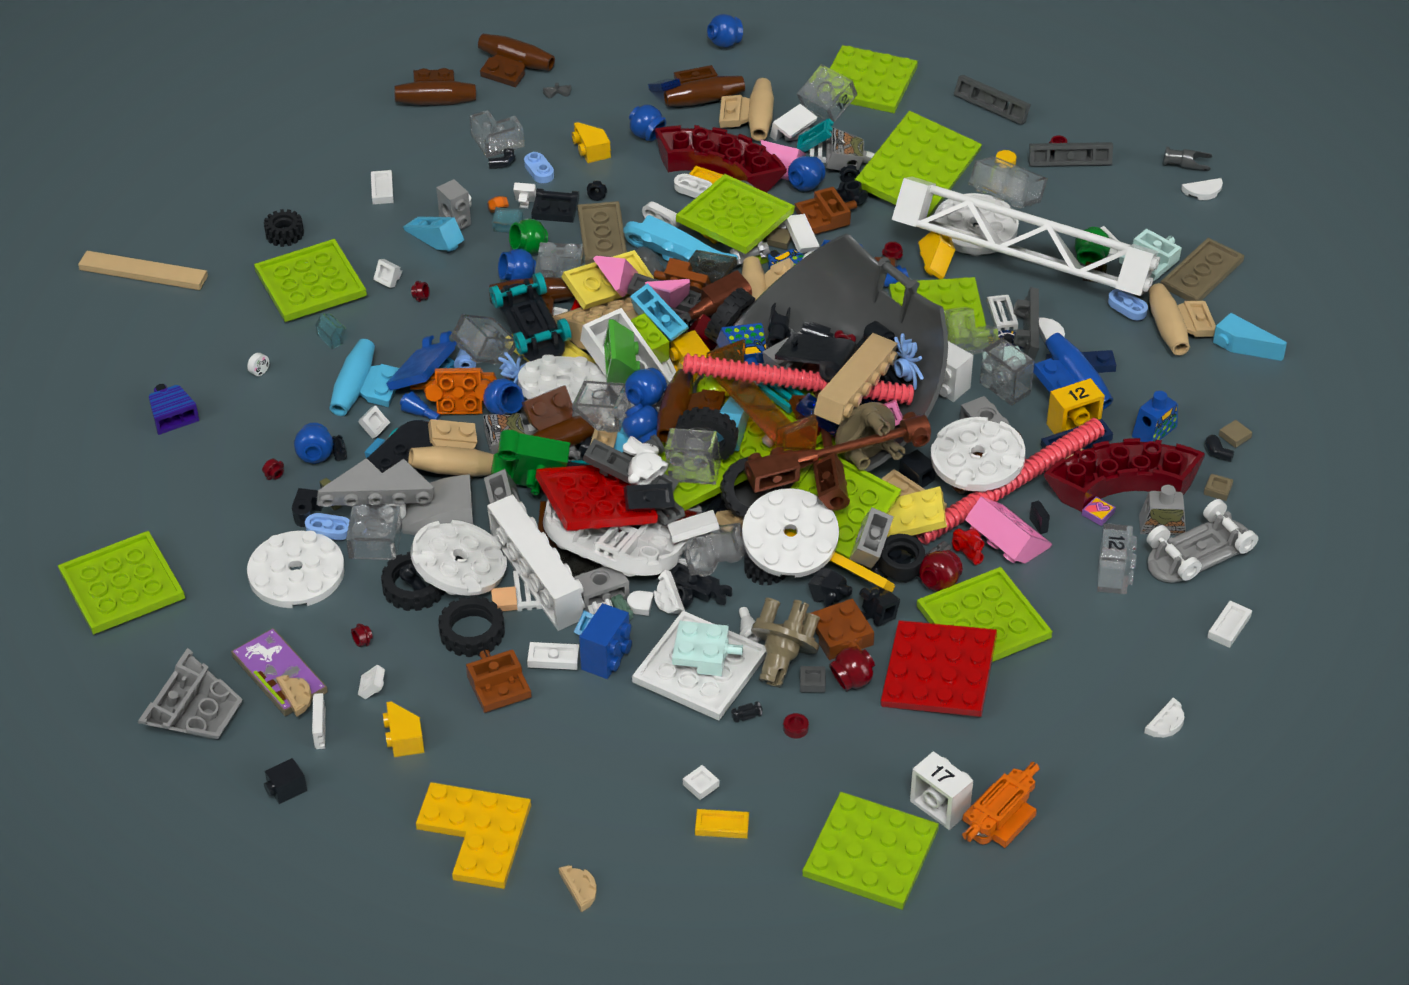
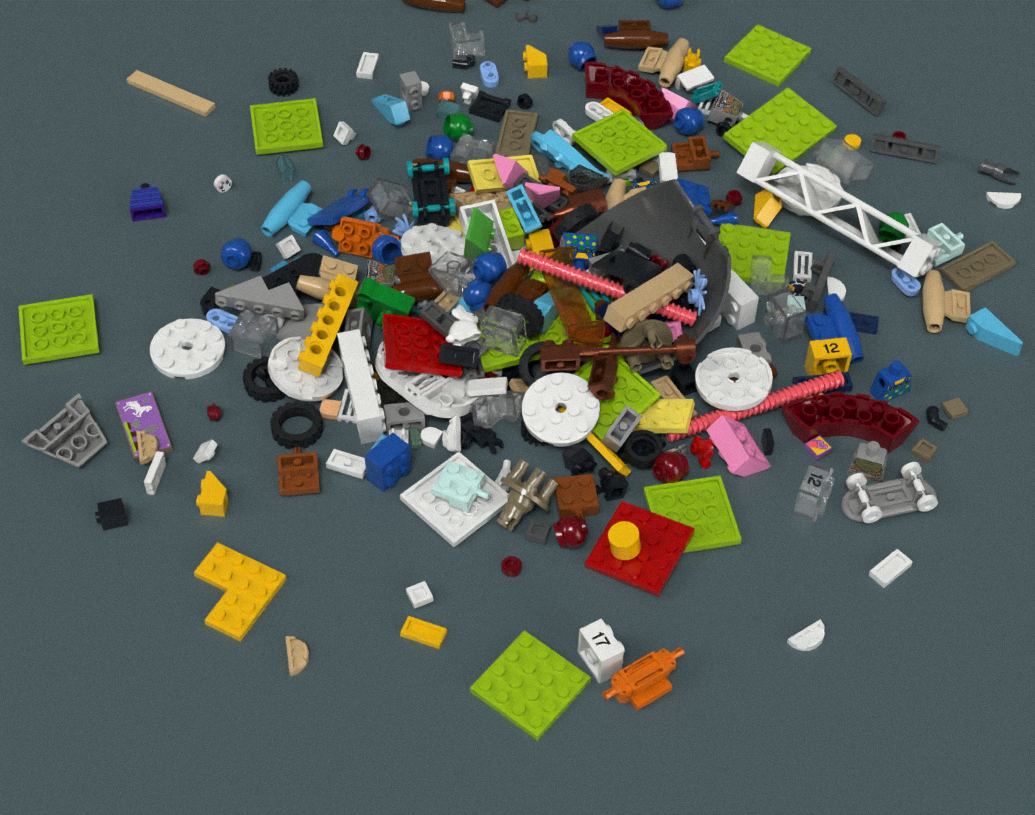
camera: 15 degrees right, 5 degrees up
(469, 499) = (314, 363): none -> yellow brick
(746, 711) = (477, 545): black piece -> none
(783, 102) = (692, 60): none -> yellow plate
(827, 93) = (728, 60): clear brick -> none
(852, 191) = (718, 142): black plate -> none
(923, 661) = (624, 540): none -> yellow piece

